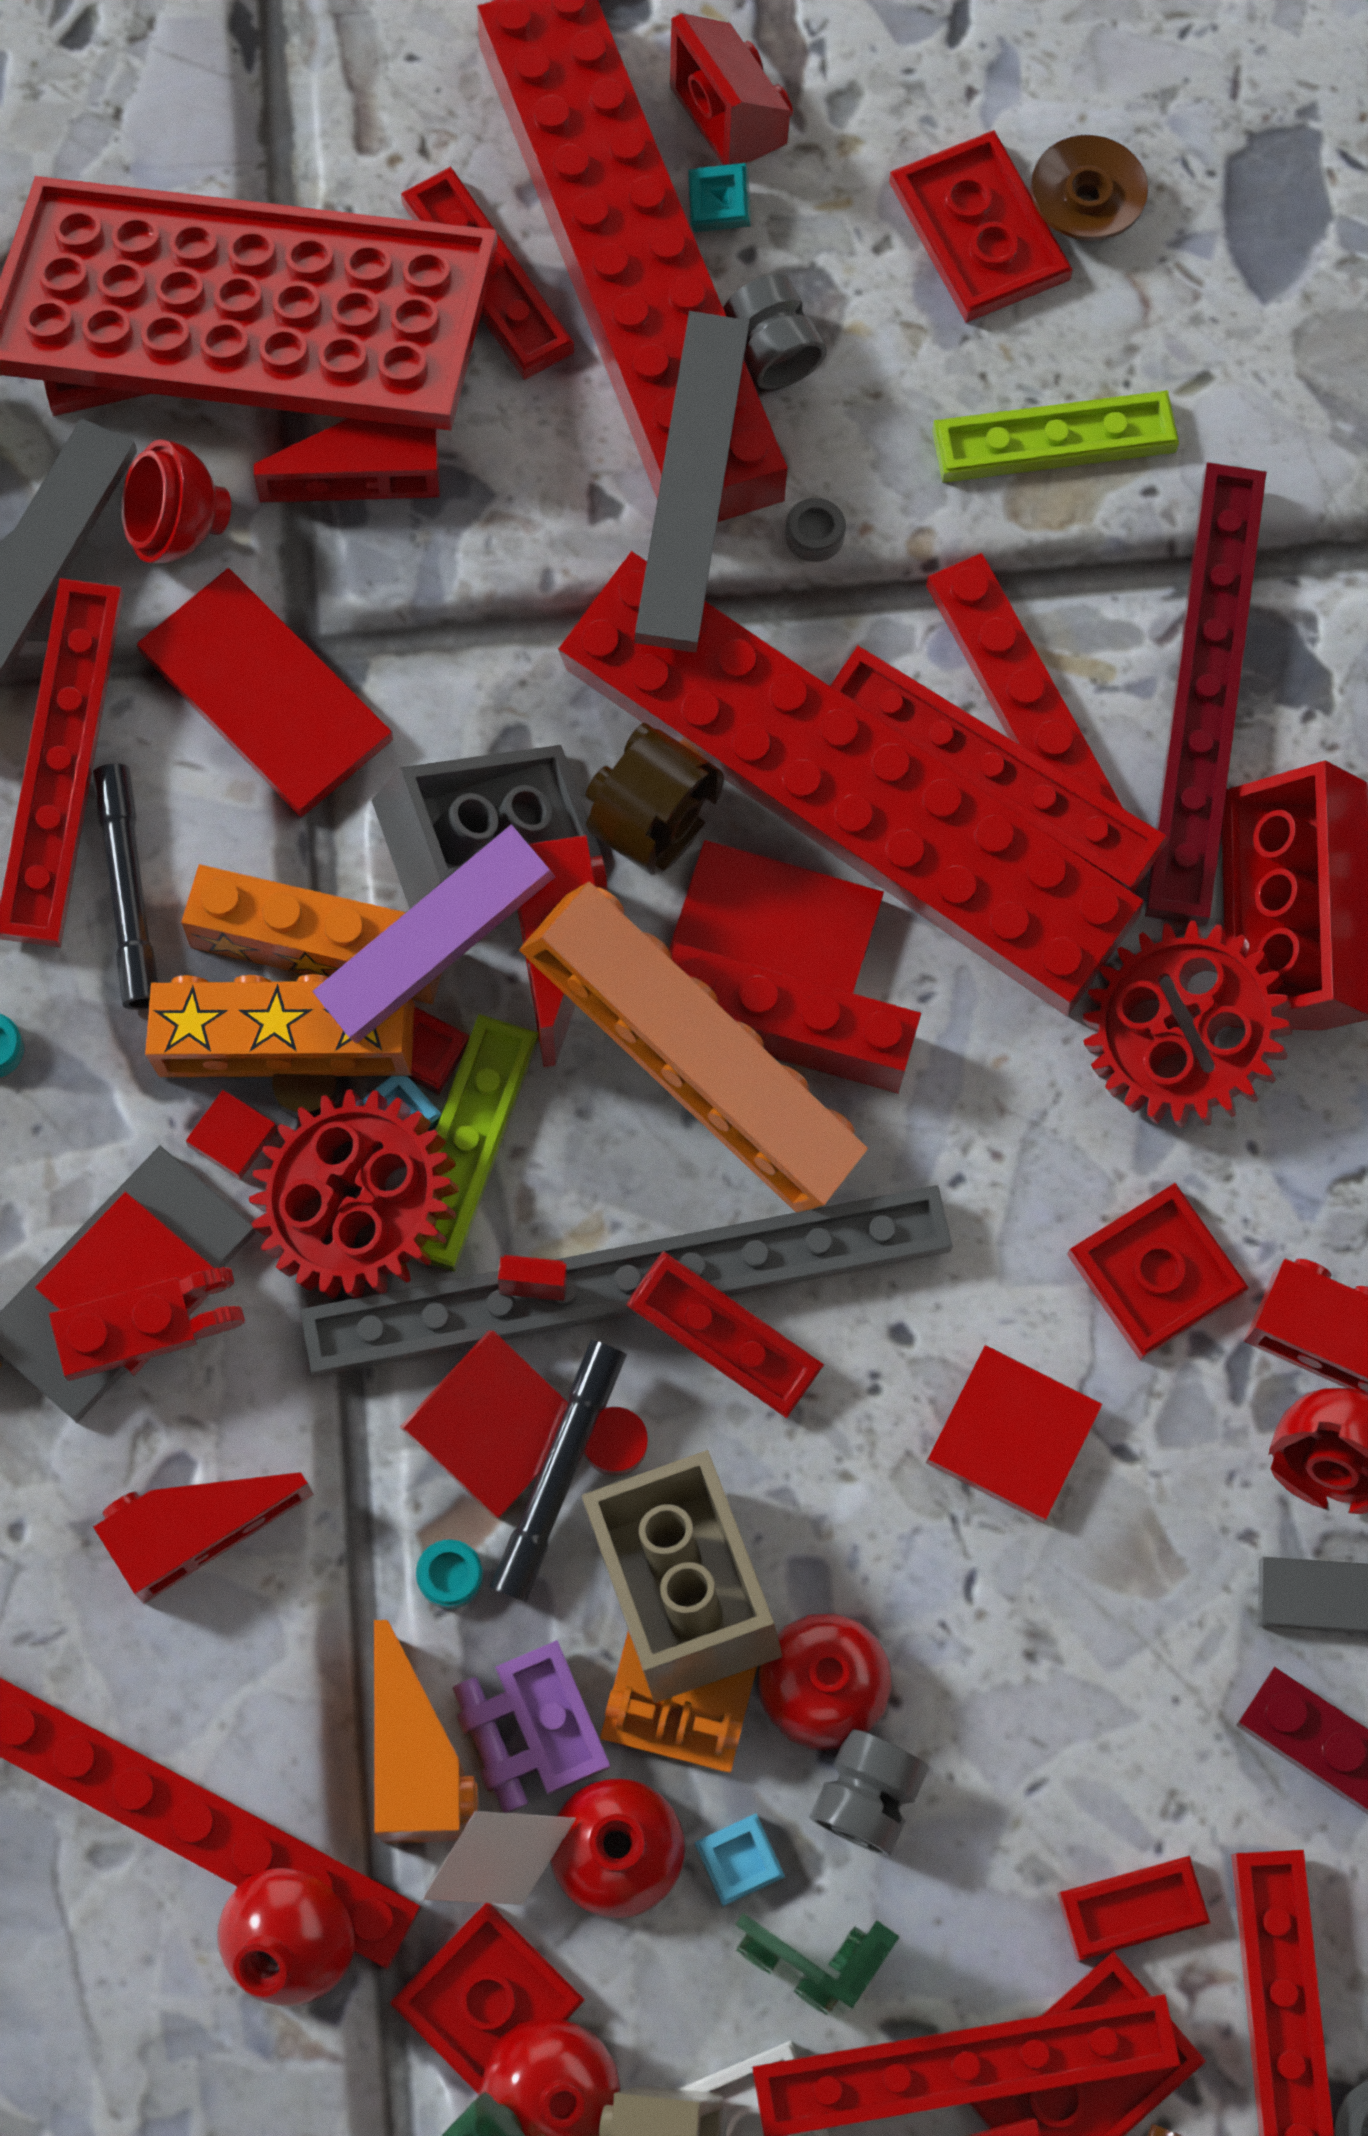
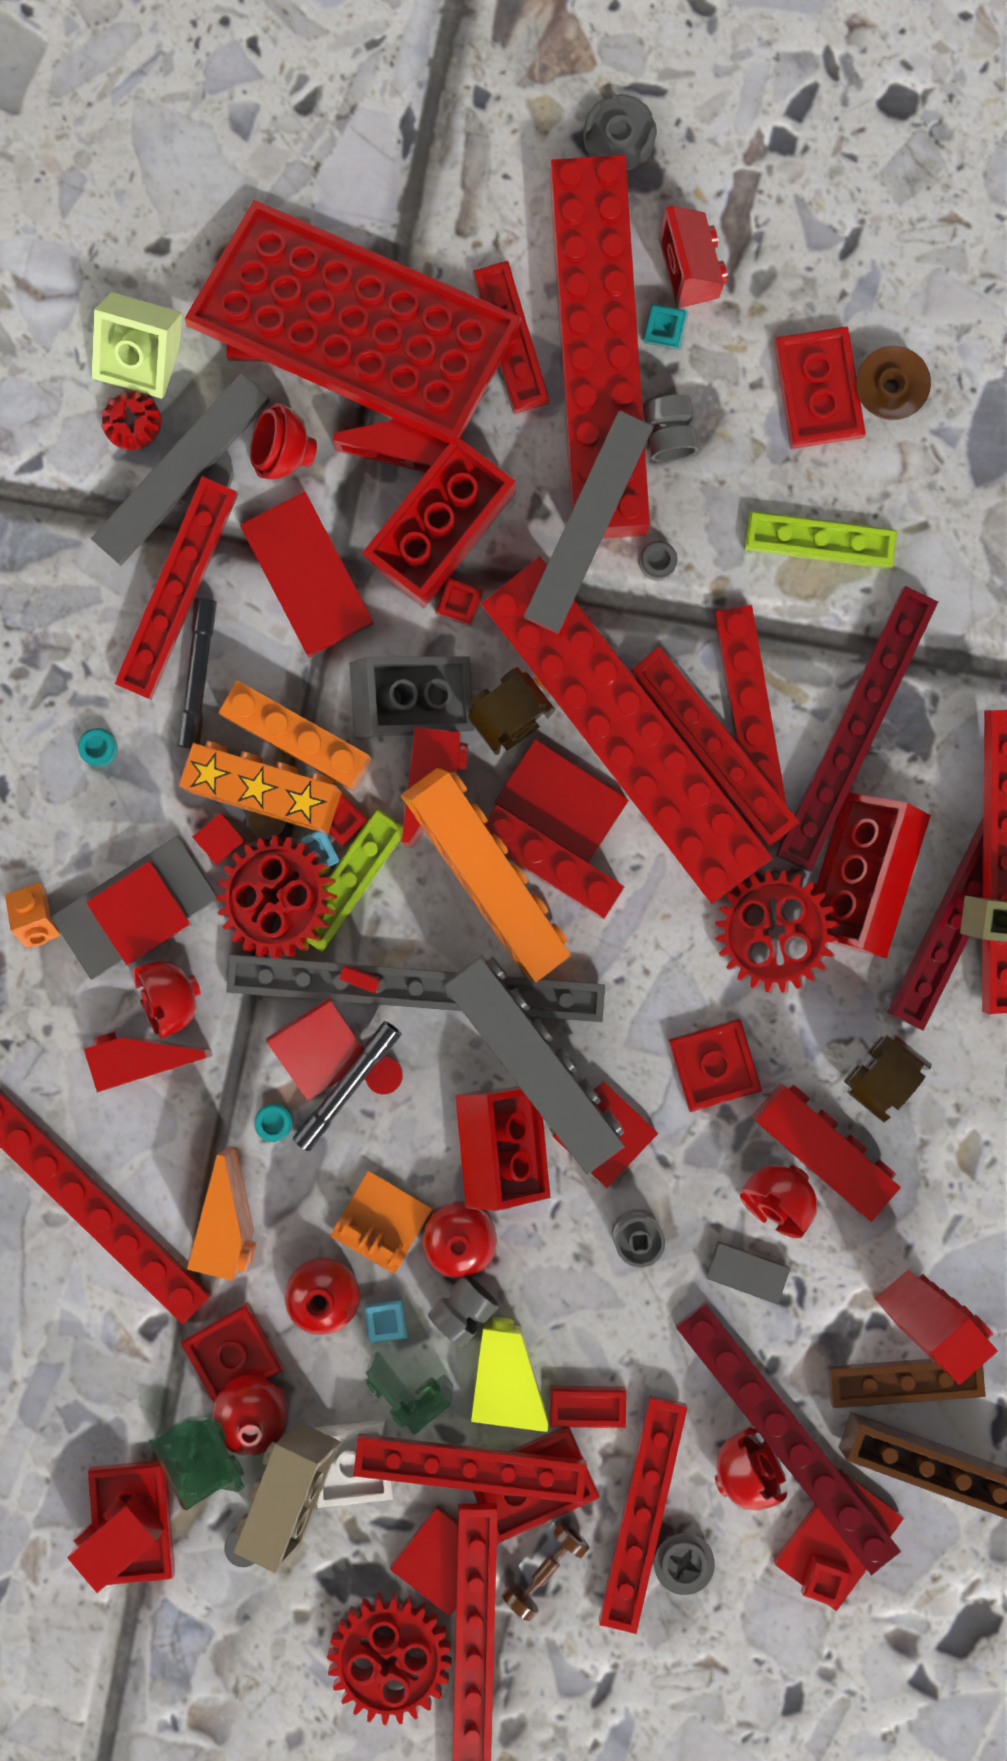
camera: 20 degrees right, 15 degrees up
(140, 1323) = (135, 942): red hinge -> none
(211, 1403) = (166, 996): none -> red cylinder
(297, 1925) = (130, 1298): red piece -> none
(433, 934) = (357, 767): medium lavender tile -> none
(458, 552) = (440, 521): none -> red slope
(498, 1858) = (254, 1291): white sticker -> none
(520, 670) = (459, 602): none -> red tile
(550, 1717) = (305, 1219): medium lavender plate -> none
(682, 1576) = (394, 1169): dark tan brick -> none
(724, 1334) = (457, 1035): red tile -> none
(849, 1498) = (501, 1149): none -> red slope
(862, 1321) = (534, 1064): none -> dark grey brick
(978, 1893) = (506, 1380): none -> neon yellow slope
(1126, 1580) = (638, 1238): none -> dark grey wheel

